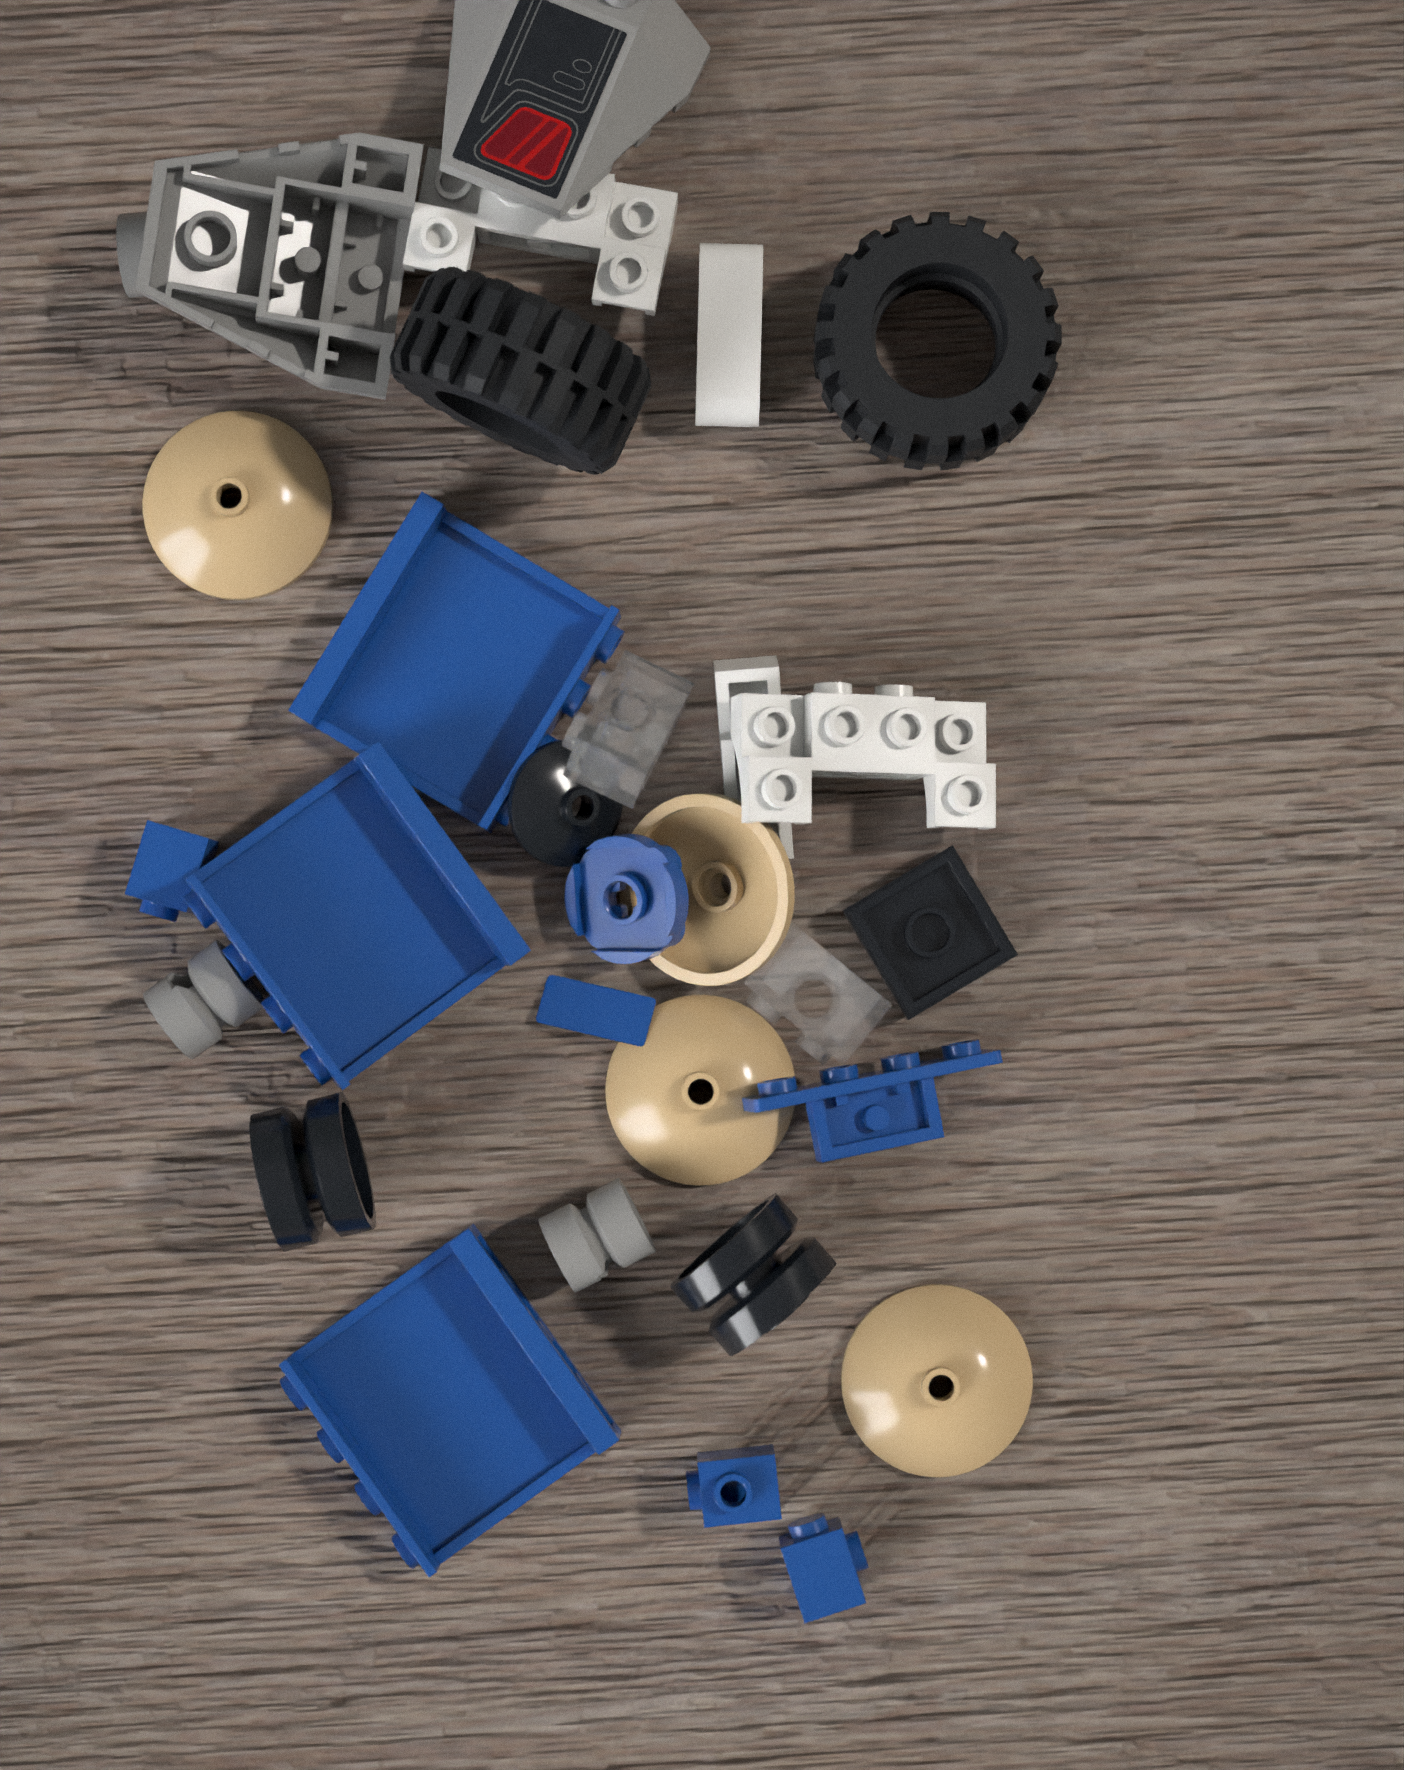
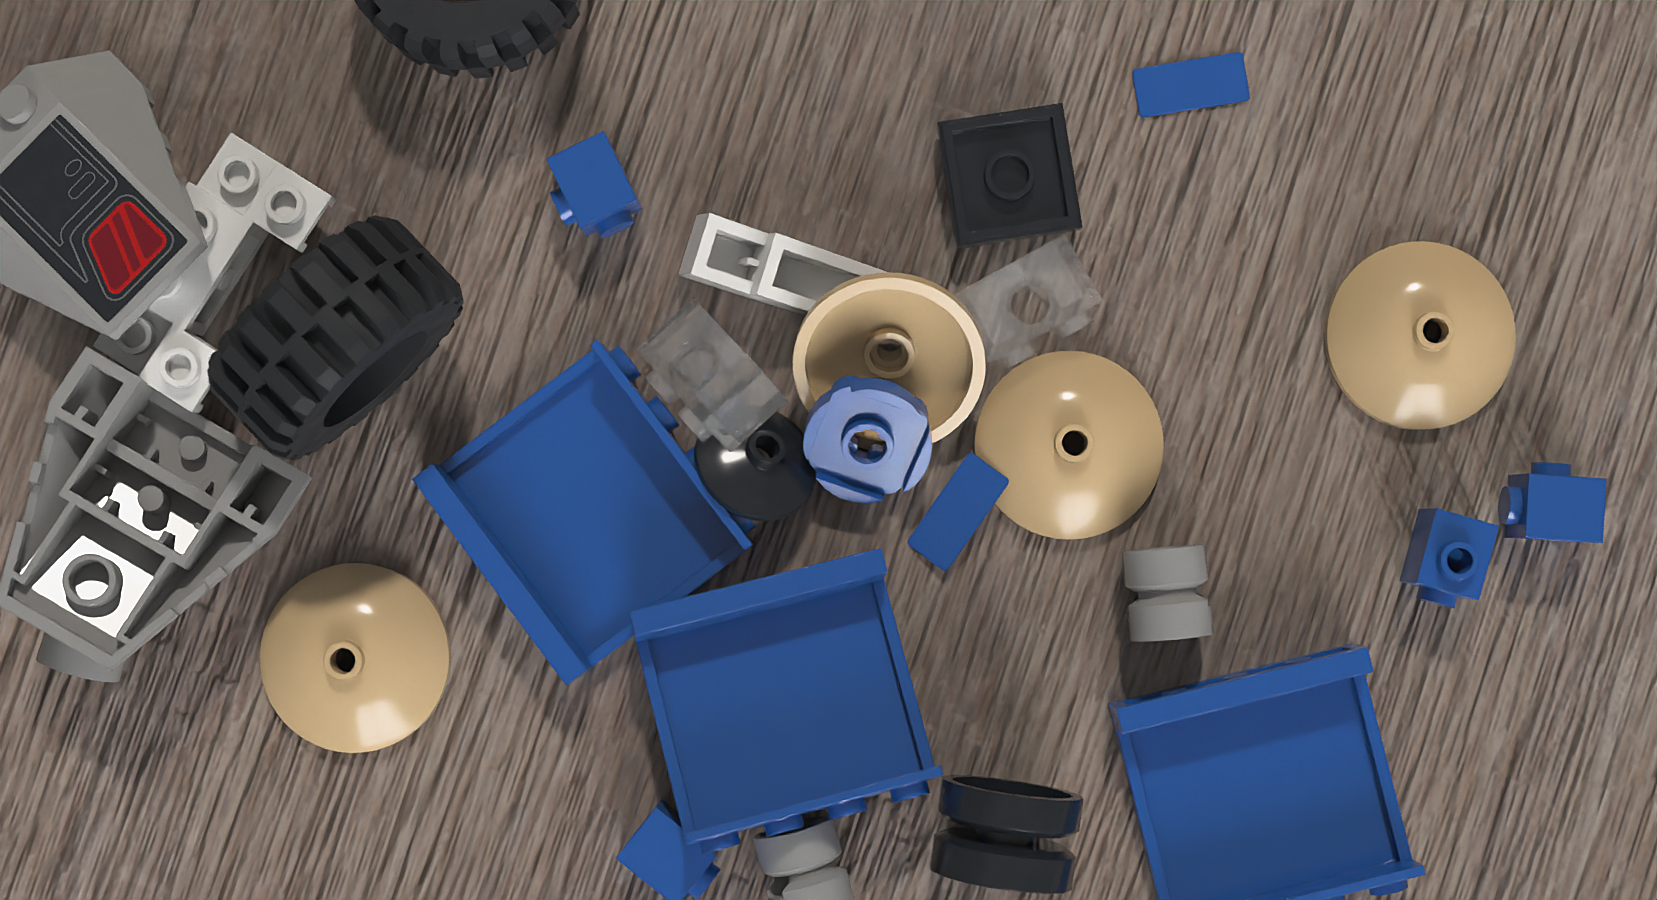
camera: 60 degrees left, 0 degrees up
(729, 335) = (382, 138): white beam -> none
(760, 1283) = (1265, 461): black wheel -> none
(761, 549) = (593, 188): none -> blue brick
(862, 736) = (812, 141): white bracket -> none
(873, 1109) = (1152, 288): blue bracket -> none
(1088, 1070) = (1191, 84): none -> blue sticker

